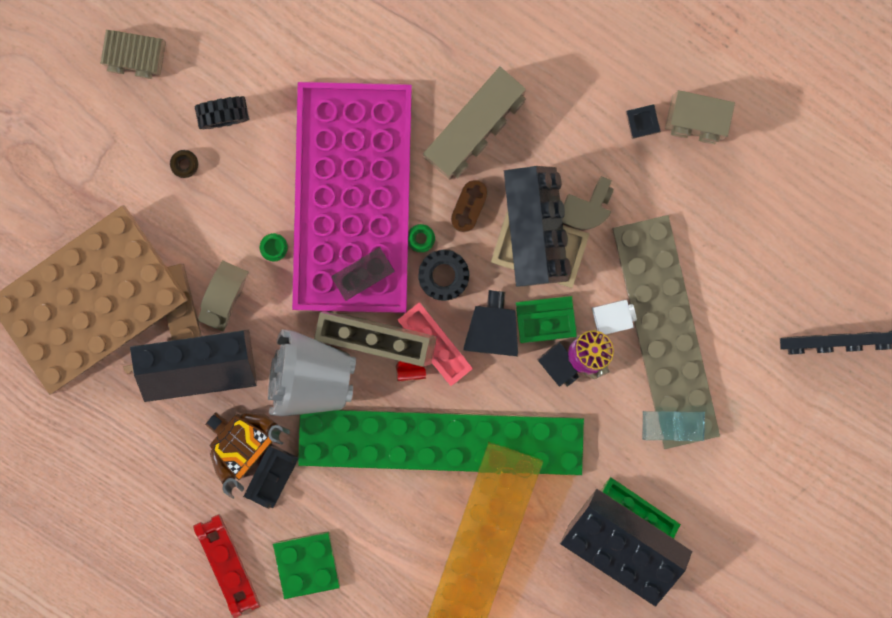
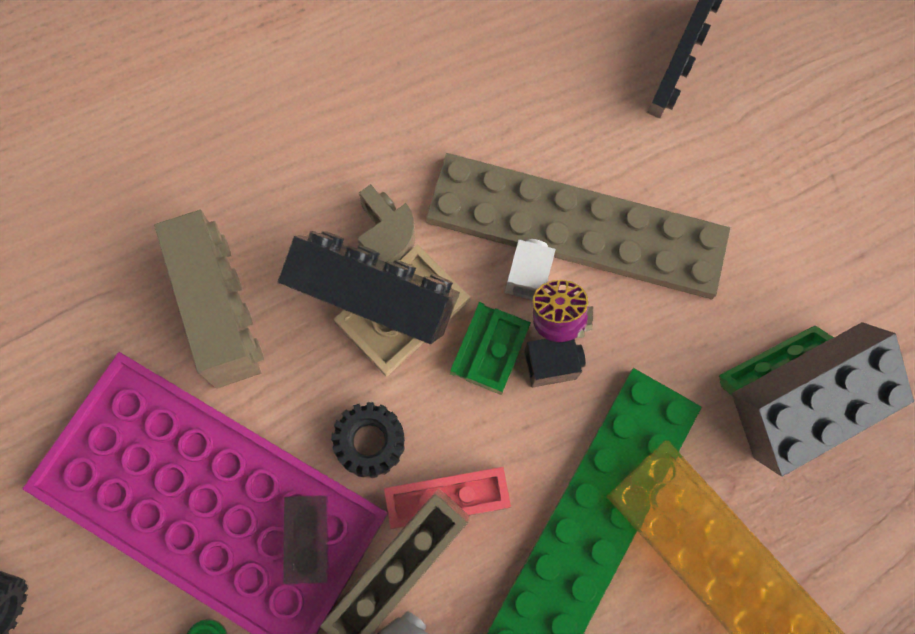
camera: 65 degrees left, 15 degrees down
(408, 371) = (463, 549): red plate -> none
(421, 228) = (308, 431): green plate -> none
(462, 204) = (312, 360): reddish brown beam -> none
(493, 328) = (466, 415): black torso -> none
(643, 121) = (327, 125): black plate -> none
(673, 425) = (695, 267): clear light blue slope -> none
(699, 116) = (356, 56): dark tan brick -> none

